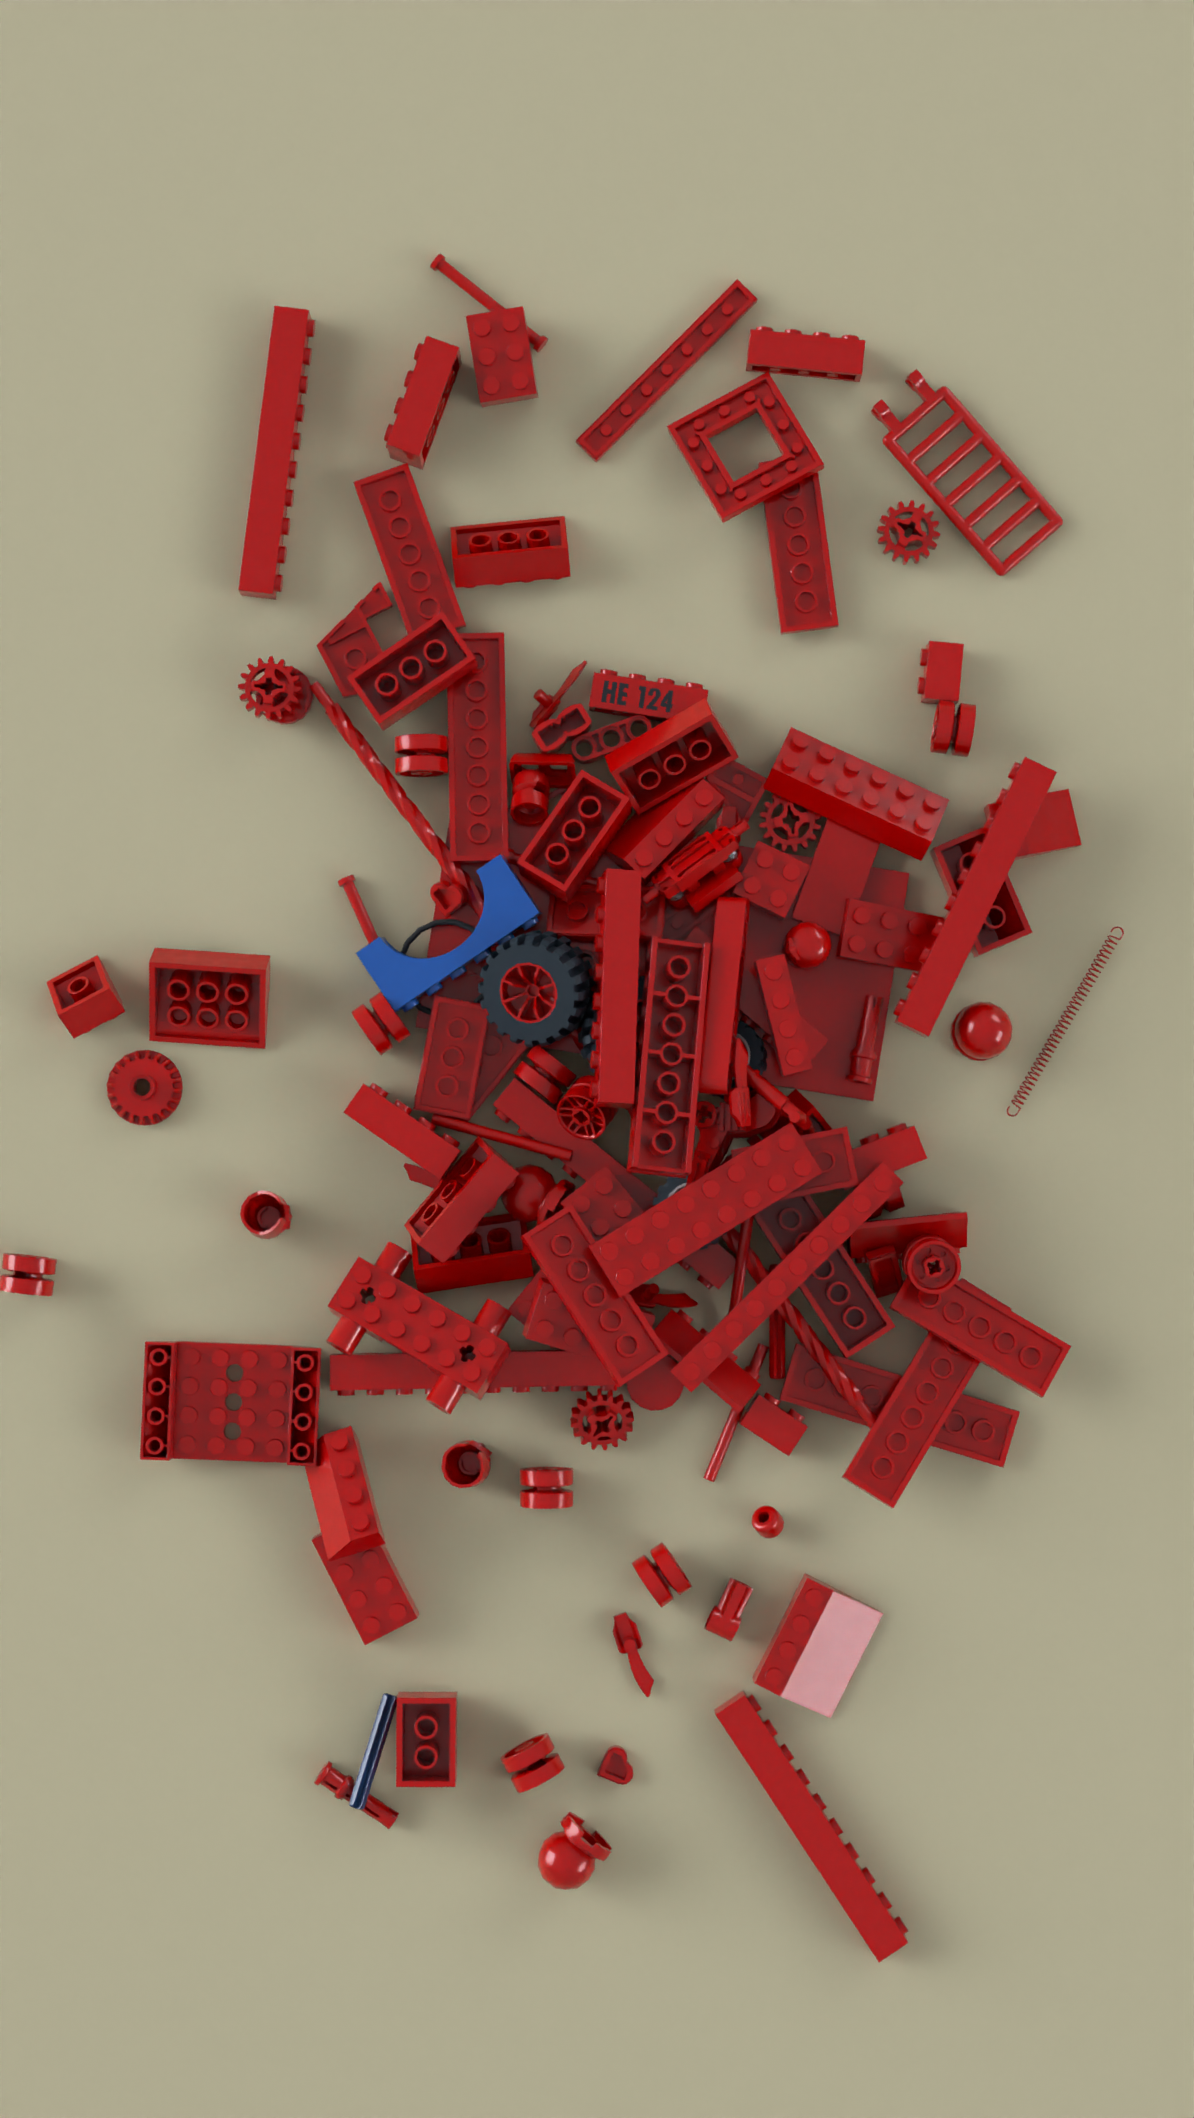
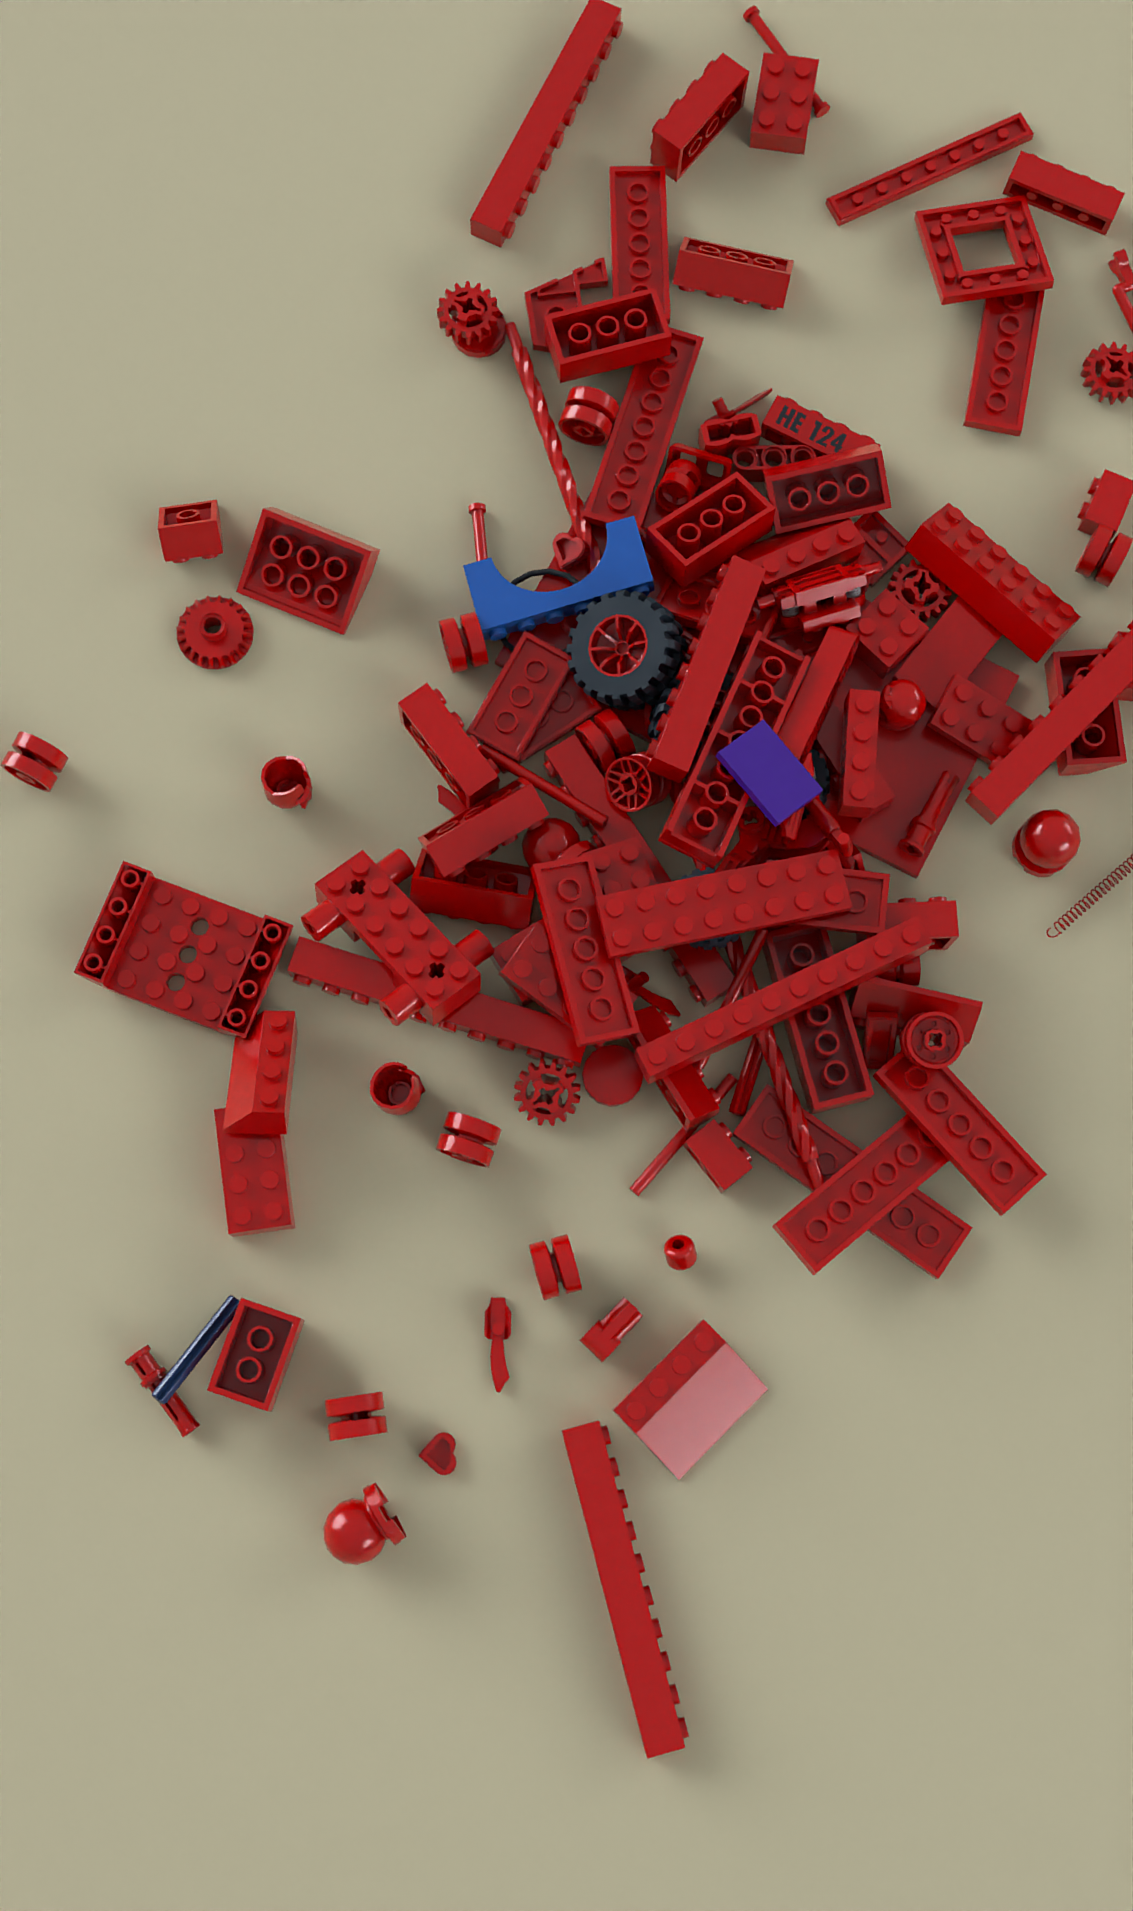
camera: 15 degrees right, 10 degrees down
(708, 1076) = (769, 773): none -> dark purple tile

